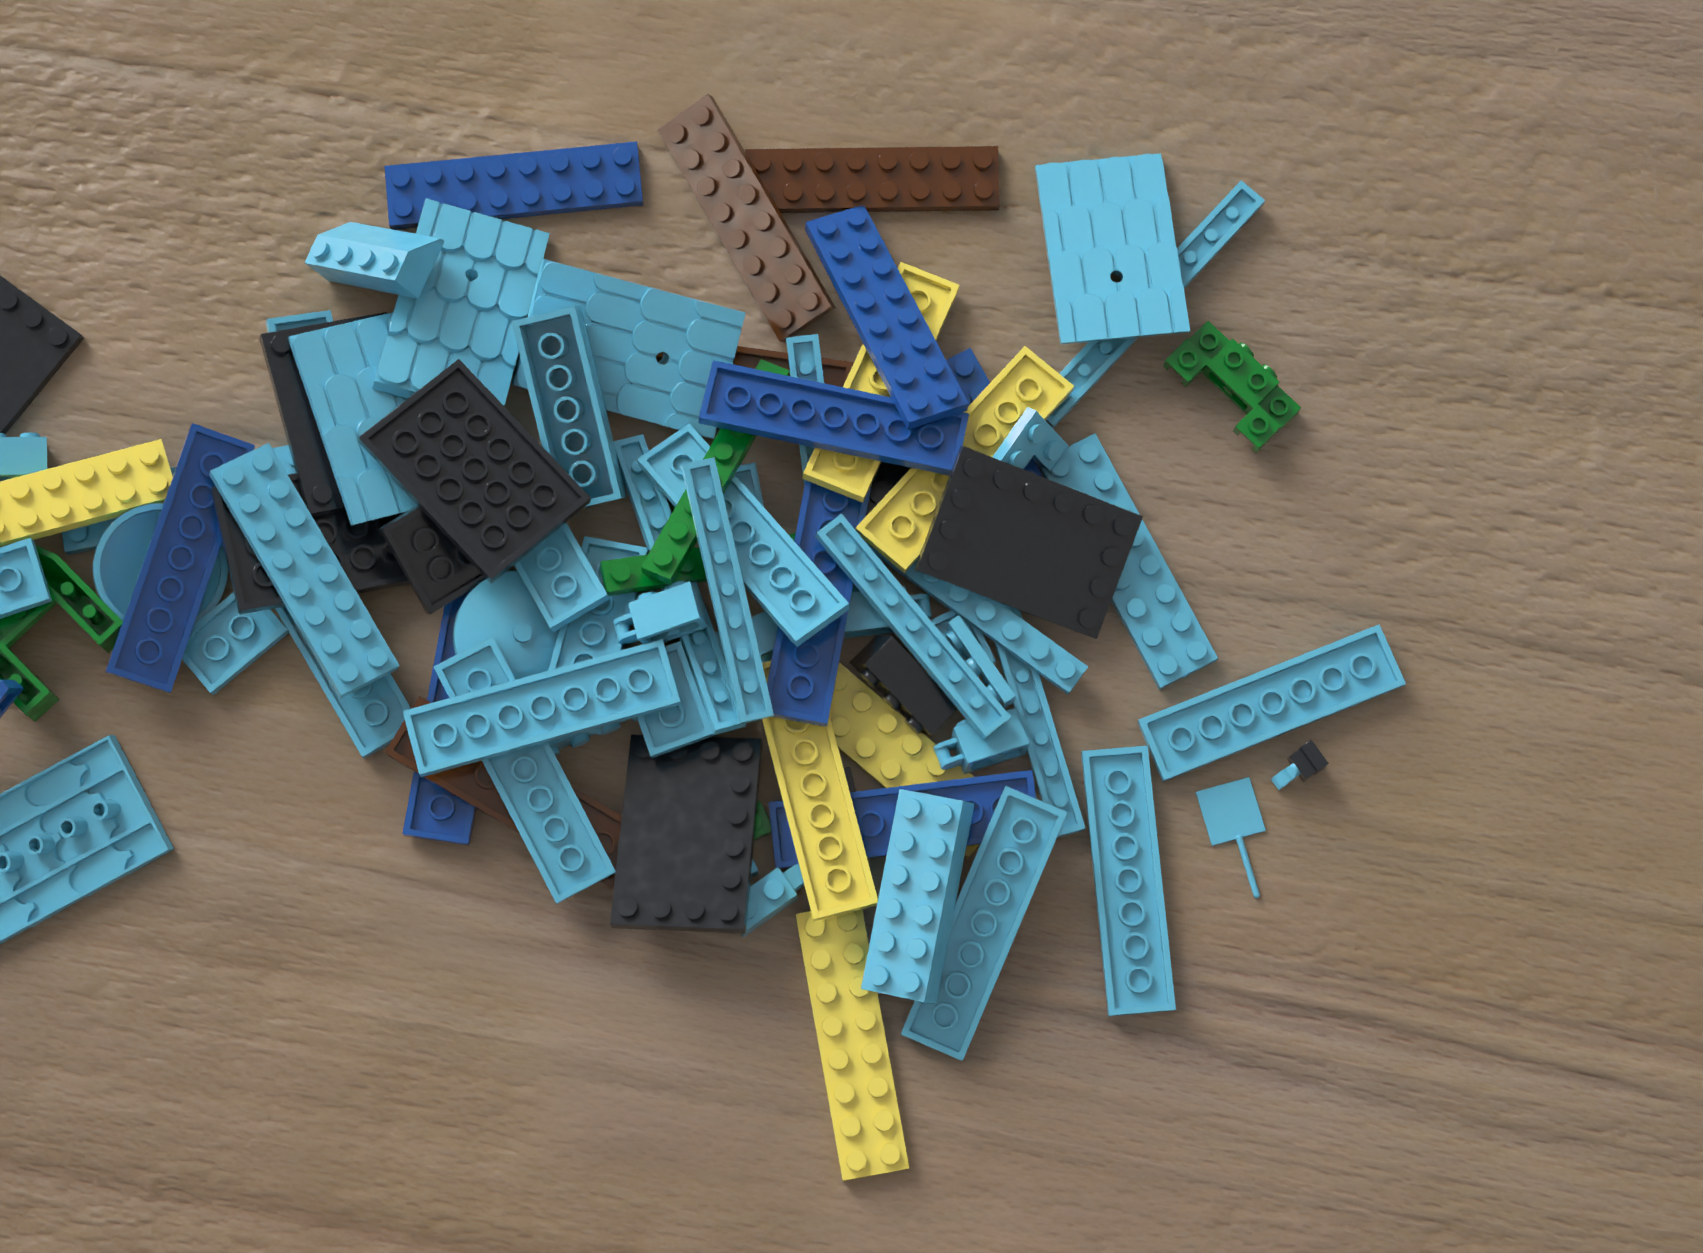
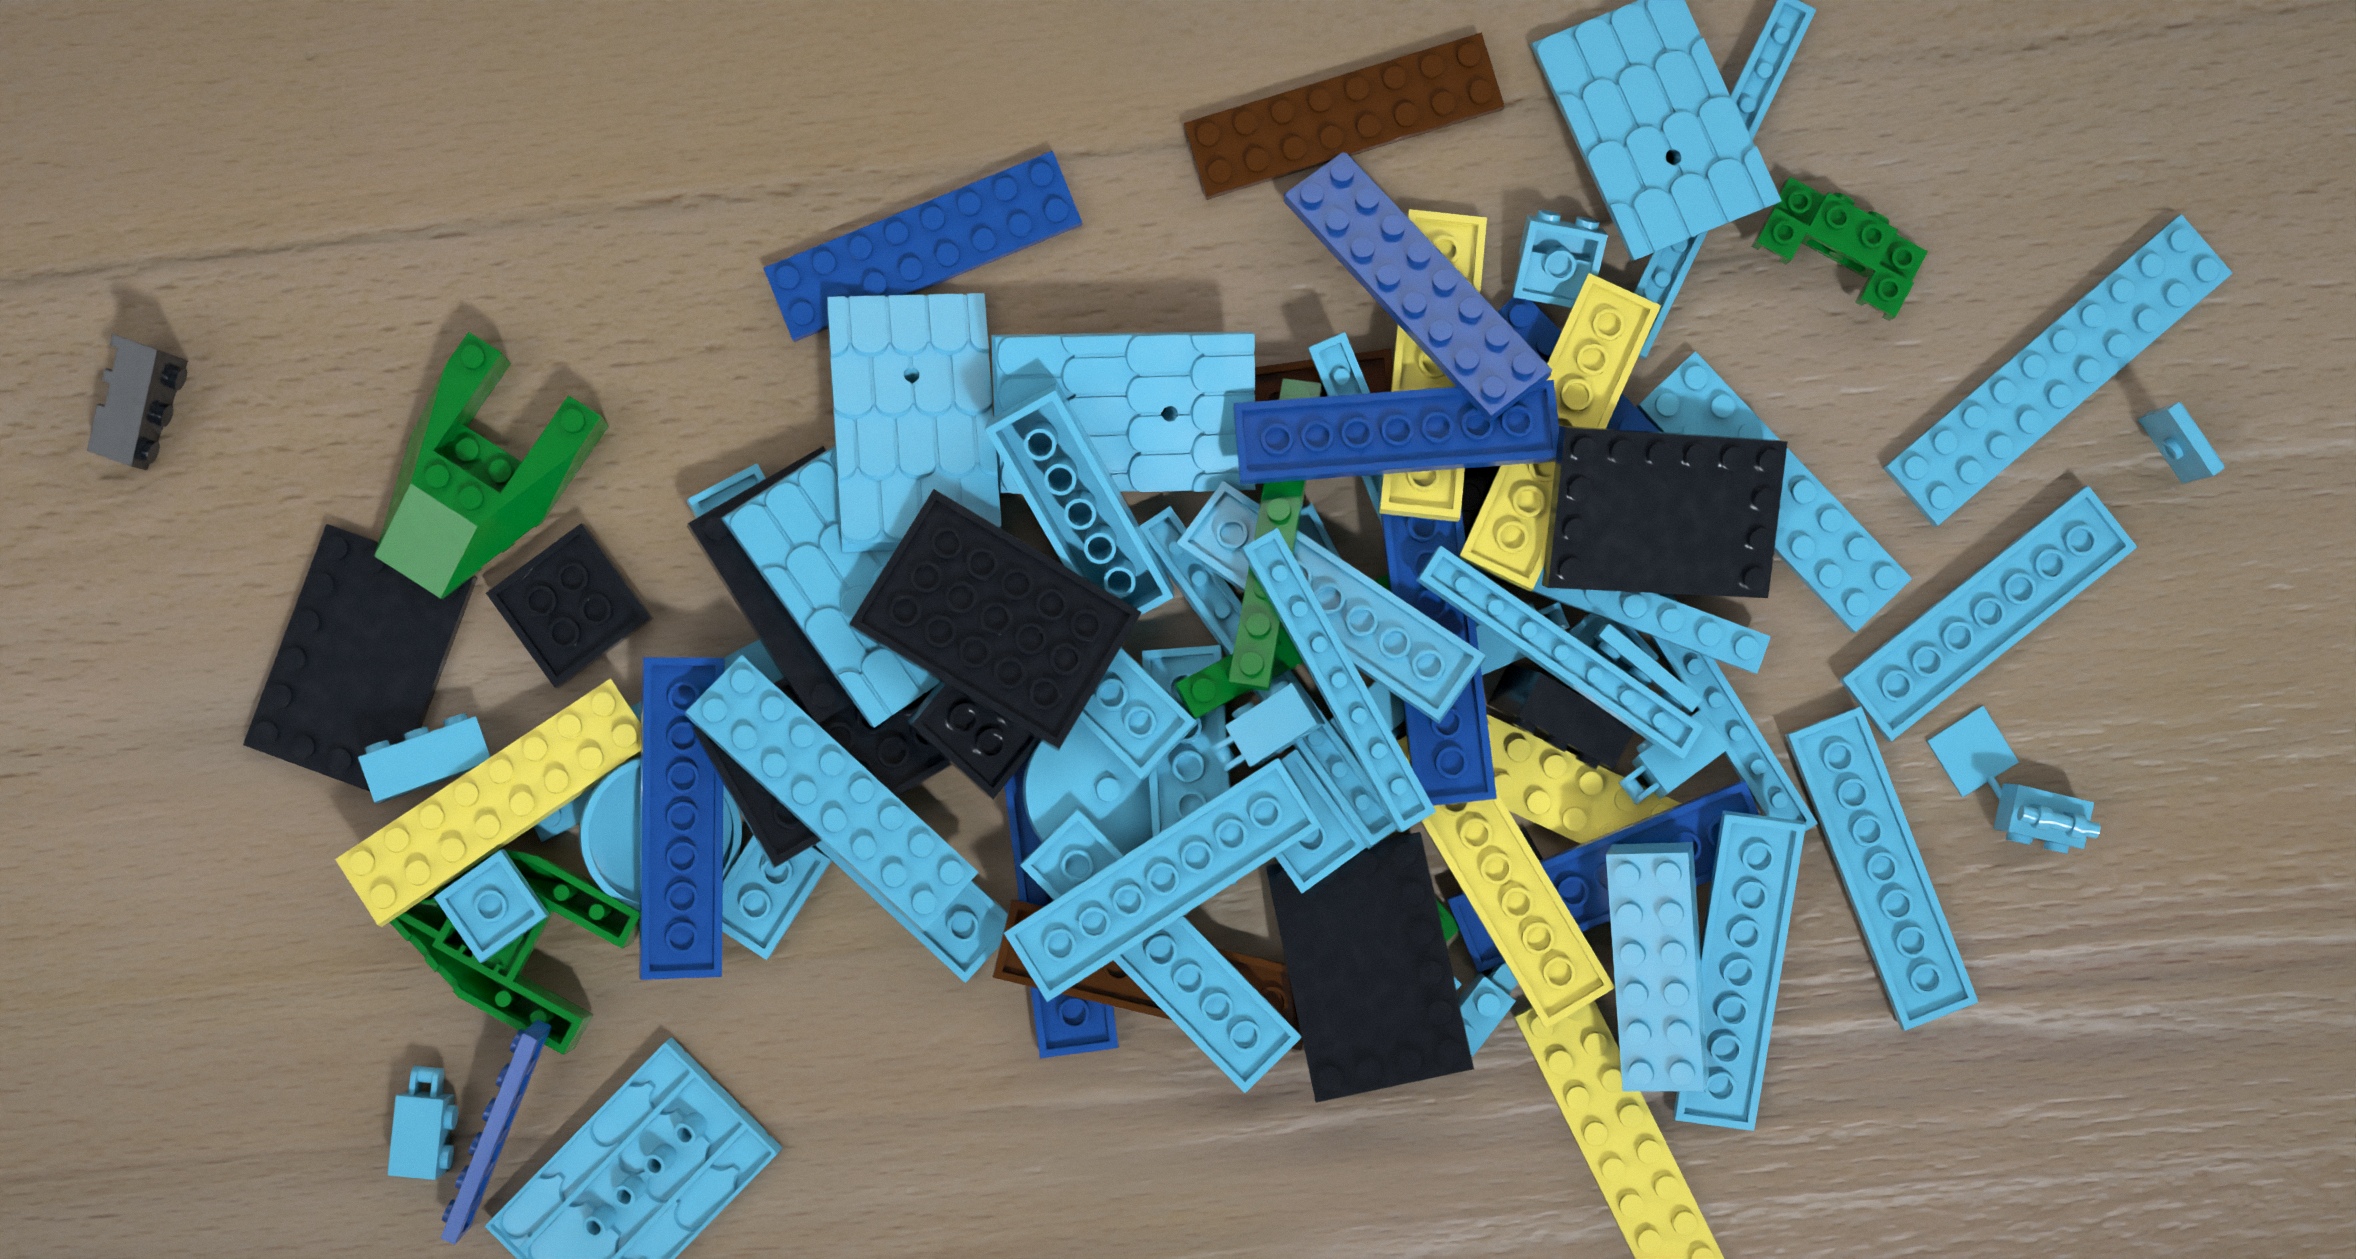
camera: 15 degrees left, 10 degrees up
(96, 268) = (465, 496): none -> green wedge
(148, 377) = (569, 605): none -> black plate
(375, 258) = (793, 387): medium azure slope -> none
(746, 218) = (1211, 208): plate -> none
(1005, 329) = (1557, 258): none -> medium azure plate
(1031, 439) = (1630, 387): medium azure plate -> none
(1270, 876) = (2045, 817): none -> medium azure brick
(1304, 763) = (2046, 672): black piece -> none
(1381, 530) = (2057, 370): none -> medium azure plate
(1460, 609) = (2181, 443): none -> medium azure plate

